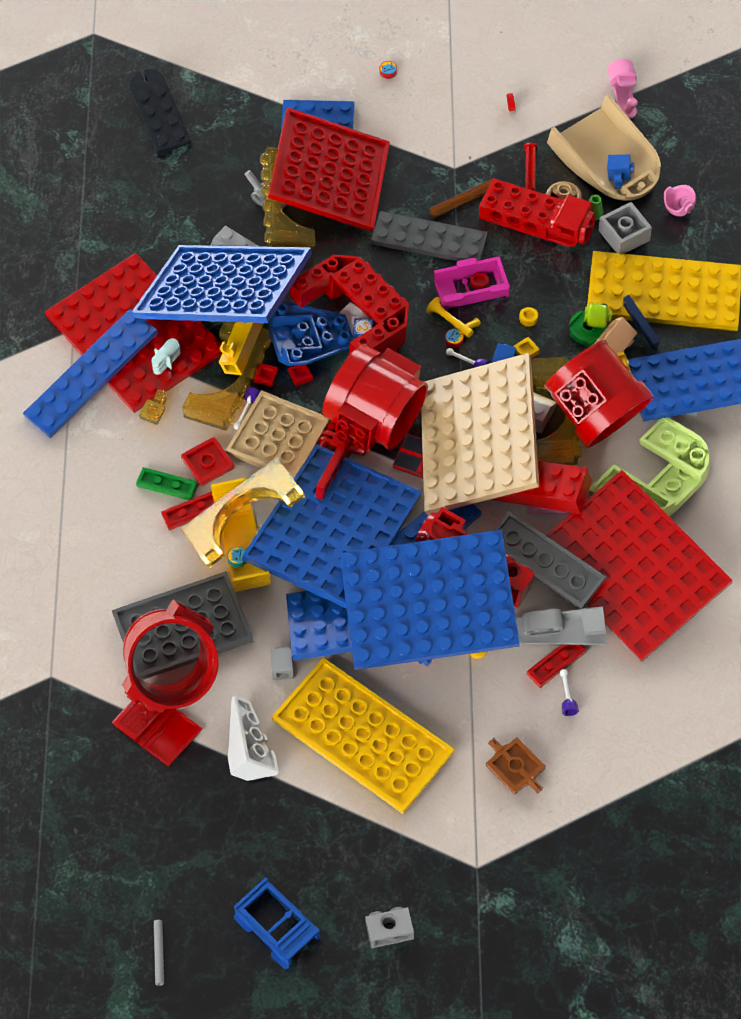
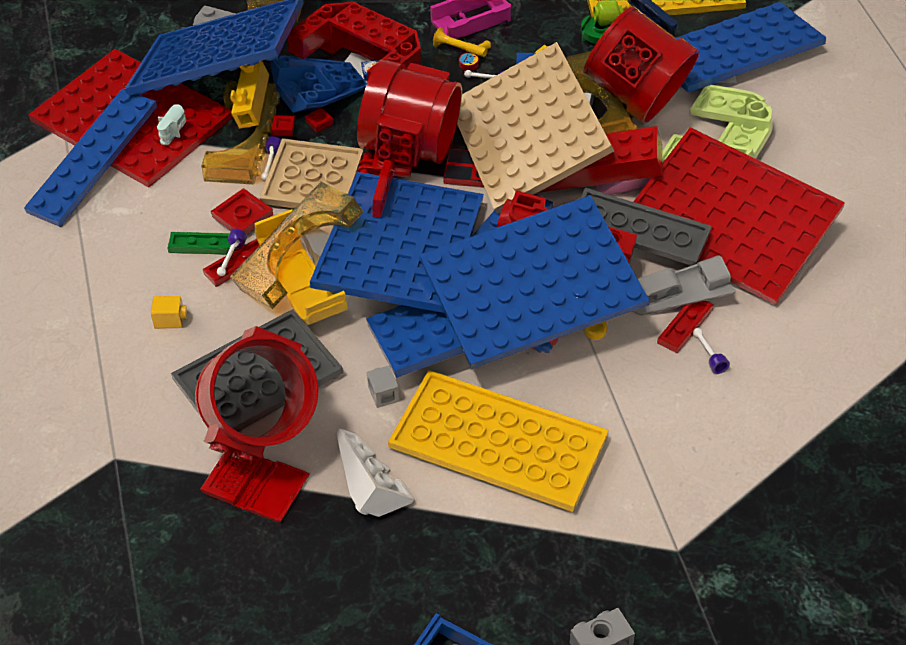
camera: 15 degrees left, 10 degrees down
(122, 549) = (168, 312): none -> yellow brick
(154, 409) = (169, 178): clear yellow plate -> none
(194, 490) = (236, 239): none -> hinge
(235, 557) = (300, 293): tile -> none
(479, 281) = (476, 9): red tile -> none
(515, 766) = (682, 433): dark orange plate -> none
(528, 316) = (537, 31): yellow tile -> none

